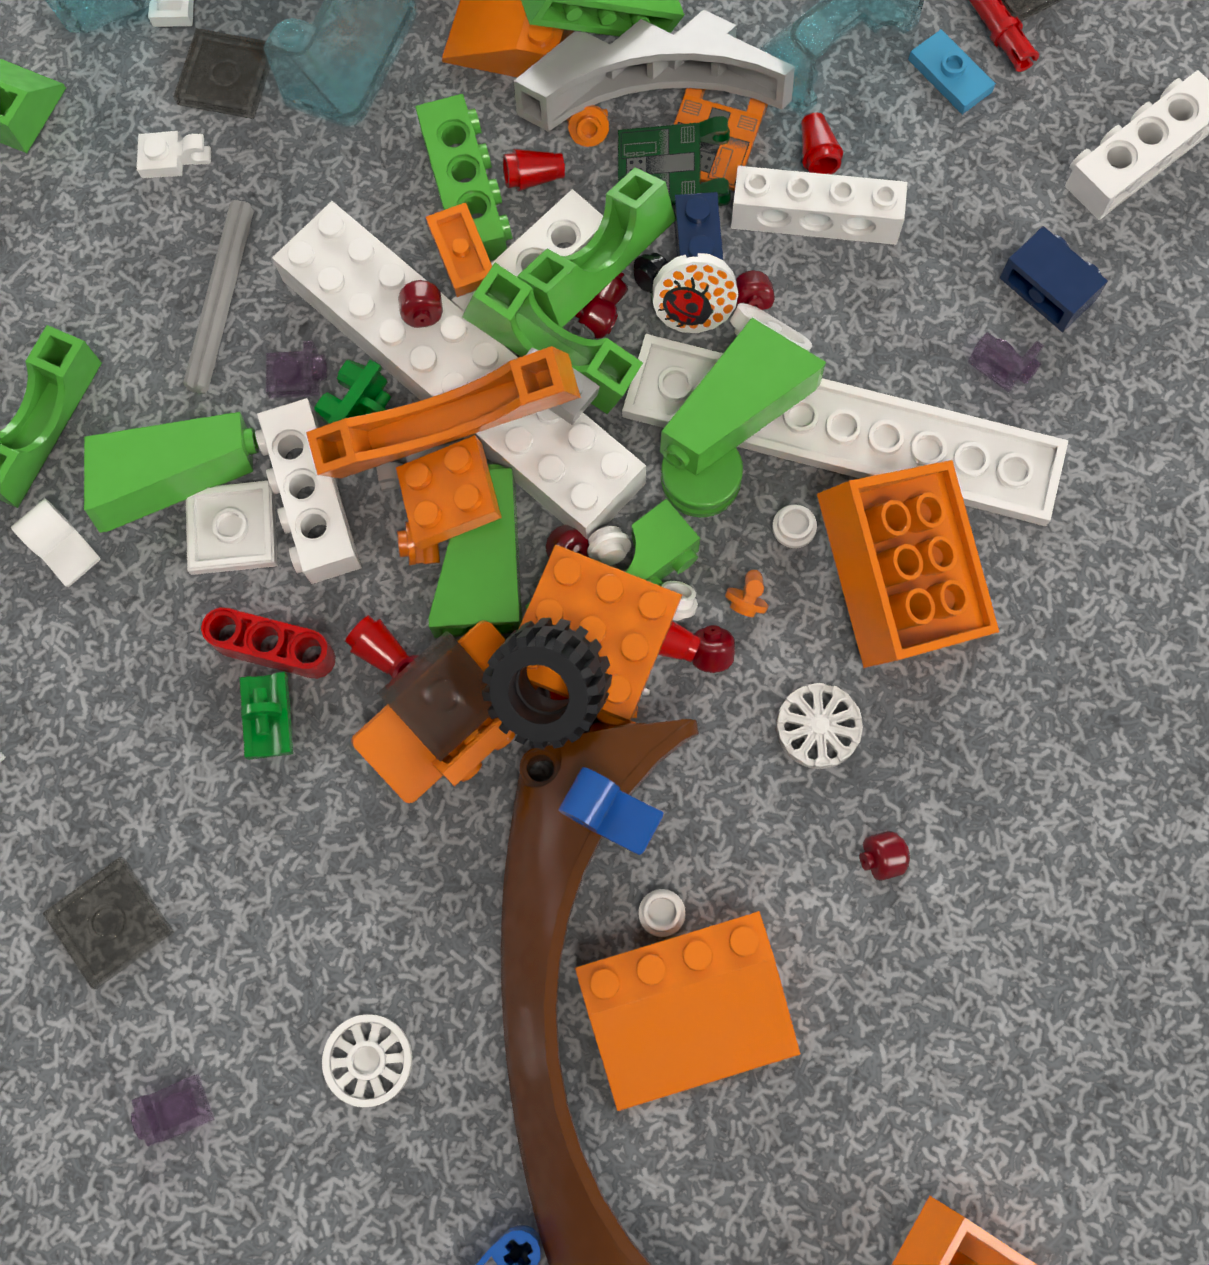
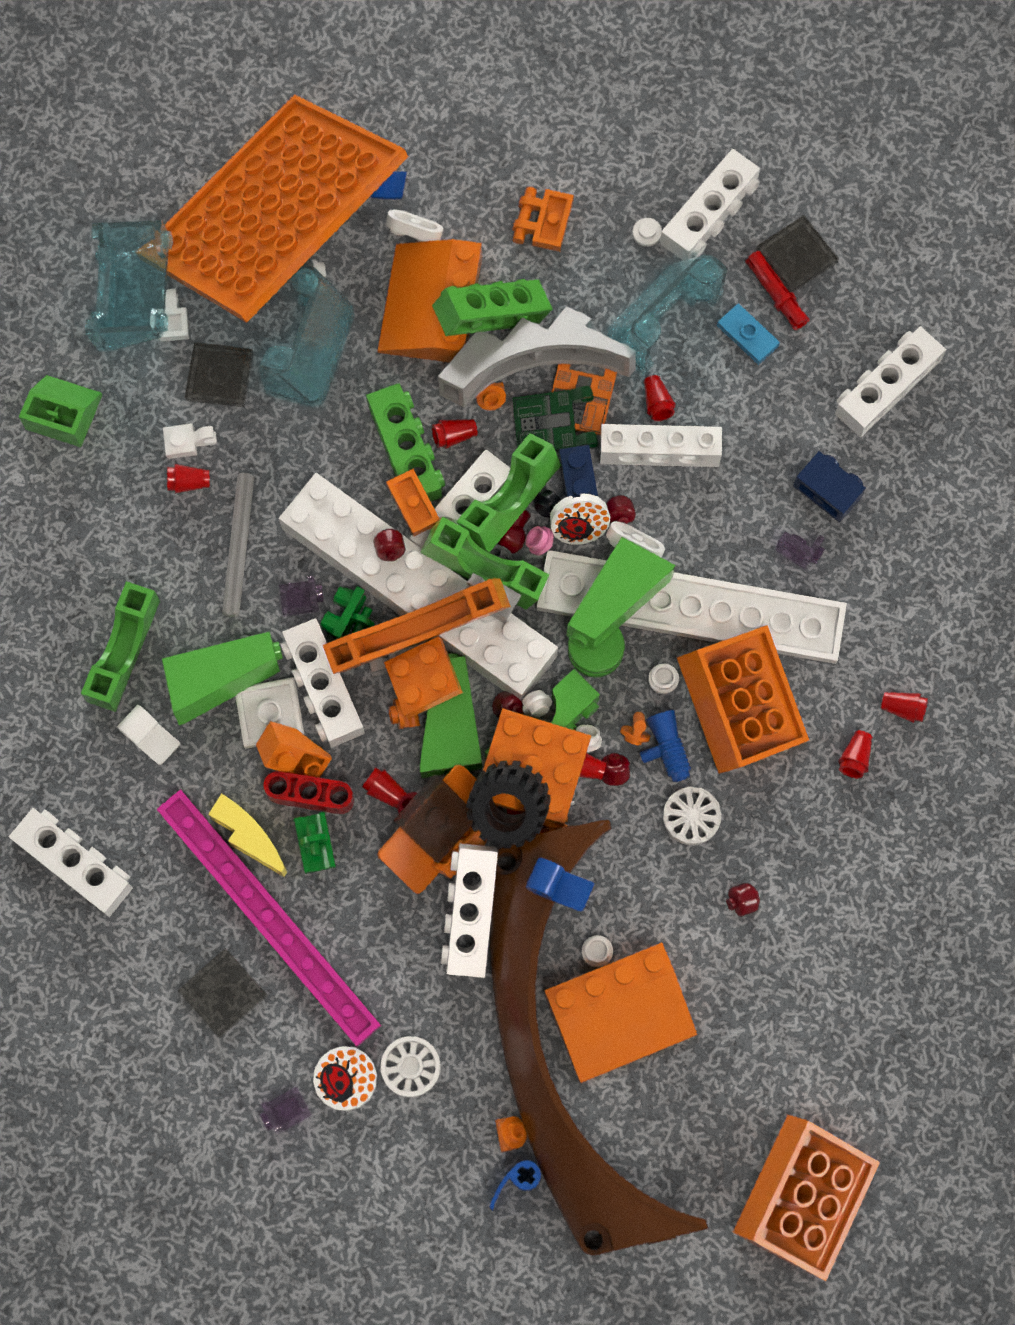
camera: 10 degrees left, 0 degrees up
(159, 202) = (186, 478): none -> red cone
(173, 695) = (247, 834): none -> light yellow slope
(191, 824) = (269, 918): none -> dark pink plate
(250, 582) = (291, 751): none -> orange slope
(268, 1069) = (345, 1078): none -> tile
(474, 910) = (470, 960): none -> white brick
(504, 1180) = (510, 1133): none -> orange plate
(636, 320) = (539, 540): none -> bright pink plate
(796, 622) = (670, 746): none -> blue piece
(1069, 659) = (856, 756): none -> red cone
(1145, 593) = (905, 705): none -> red cone

